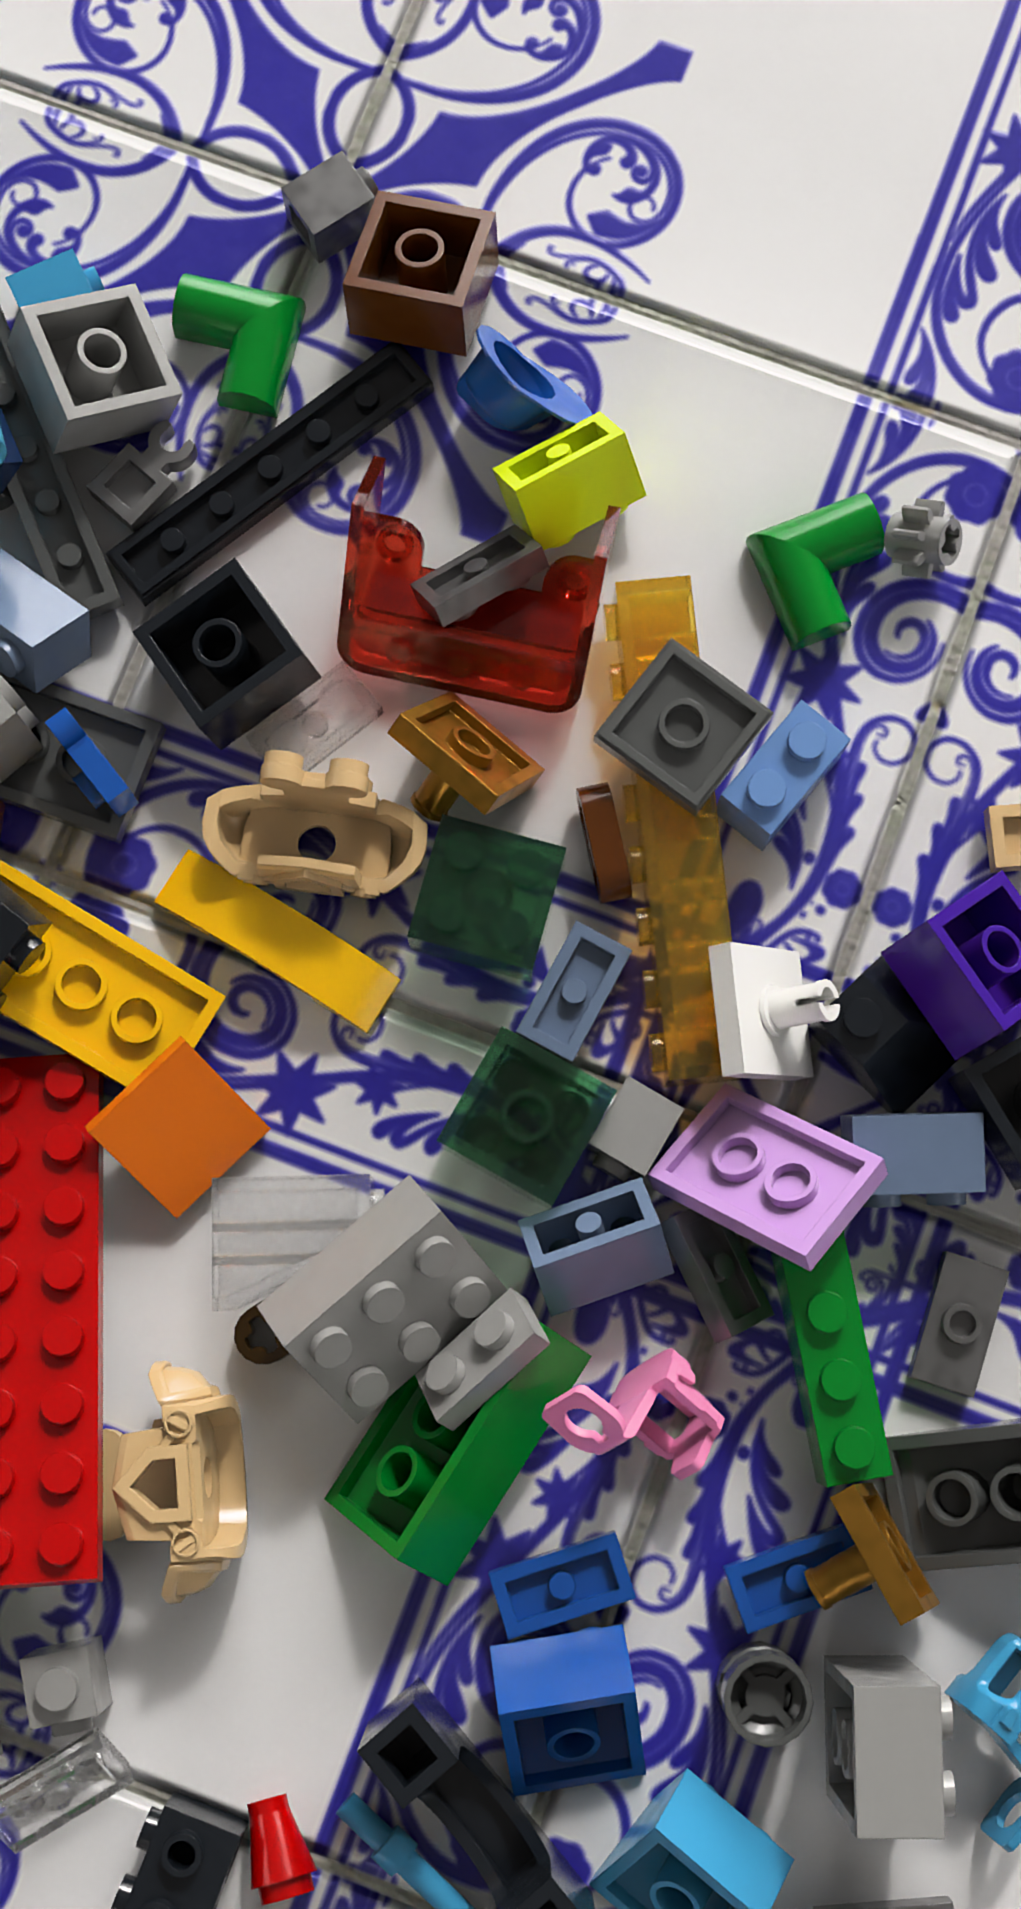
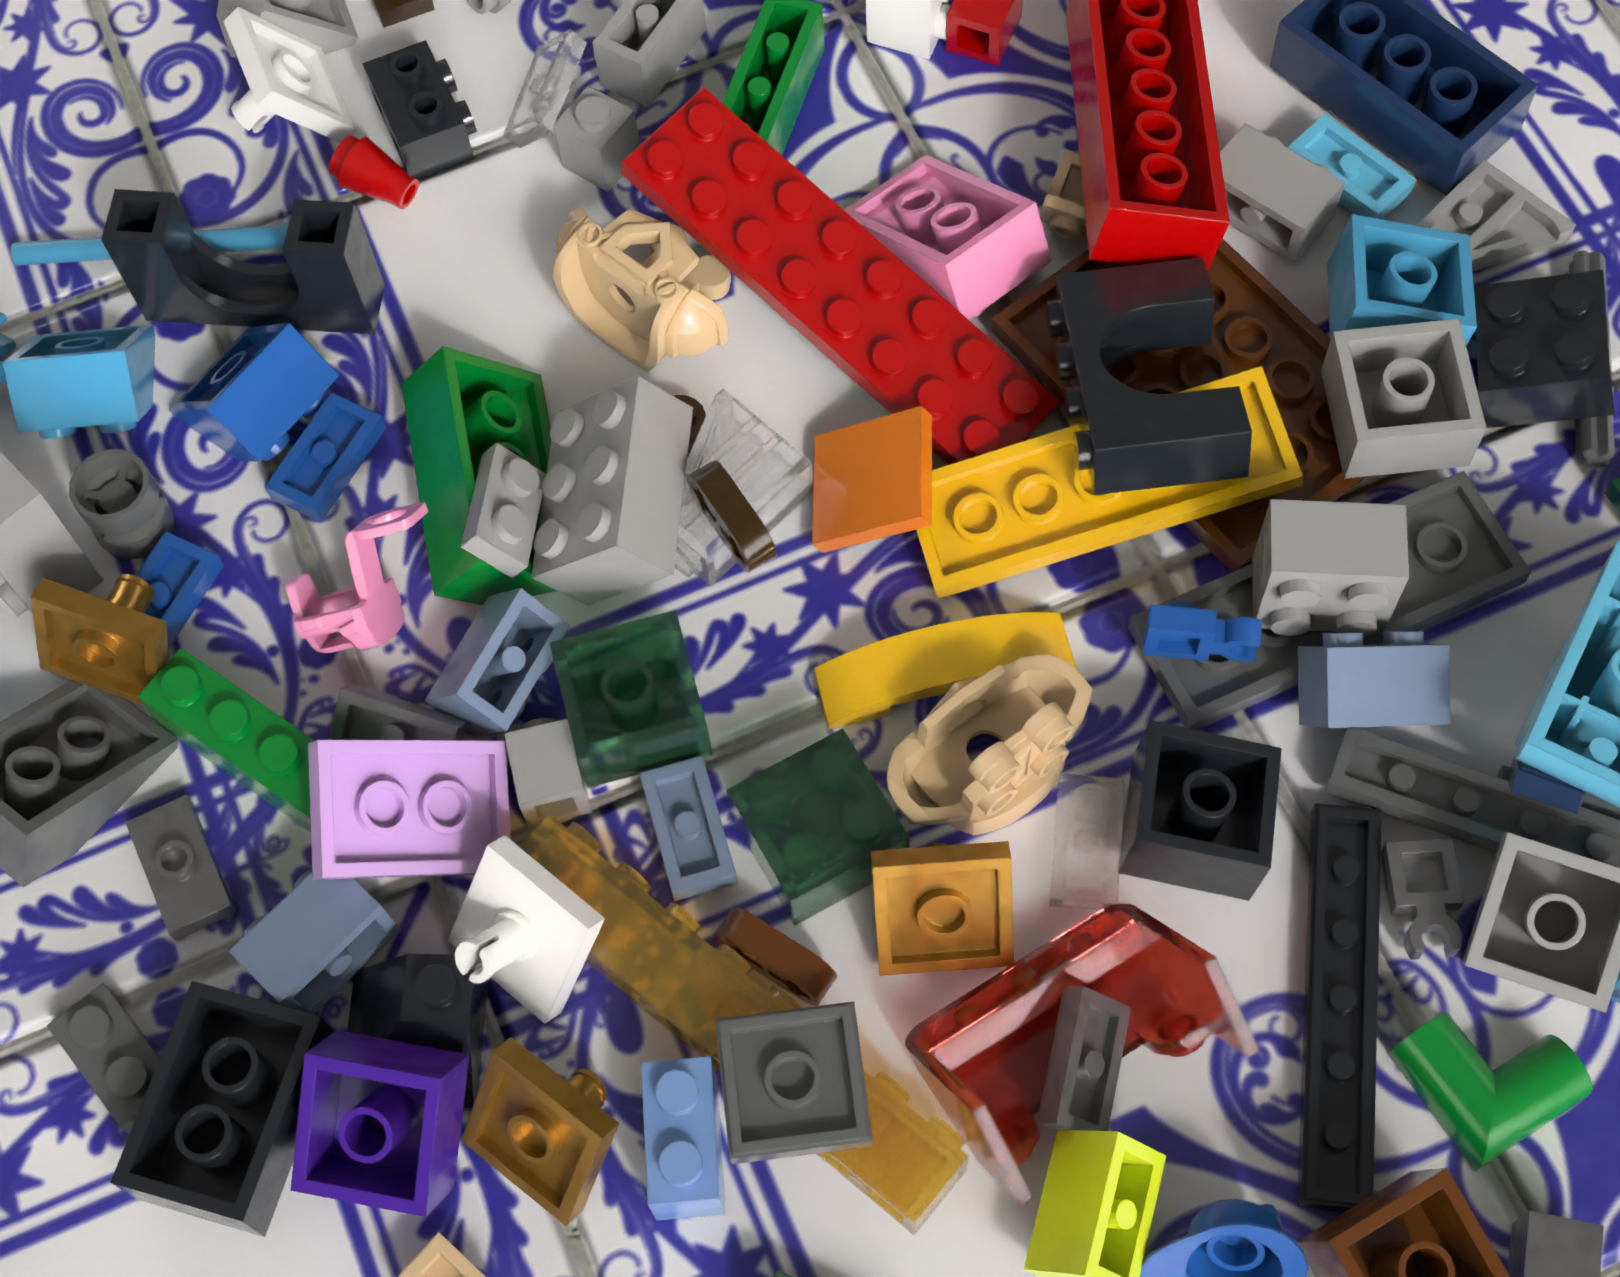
camera: 140 degrees right, 15 degrees down
(322, 1176) = (731, 516): none -> dark brown beam
(870, 863) = (541, 1129): none -> pearl gold tile

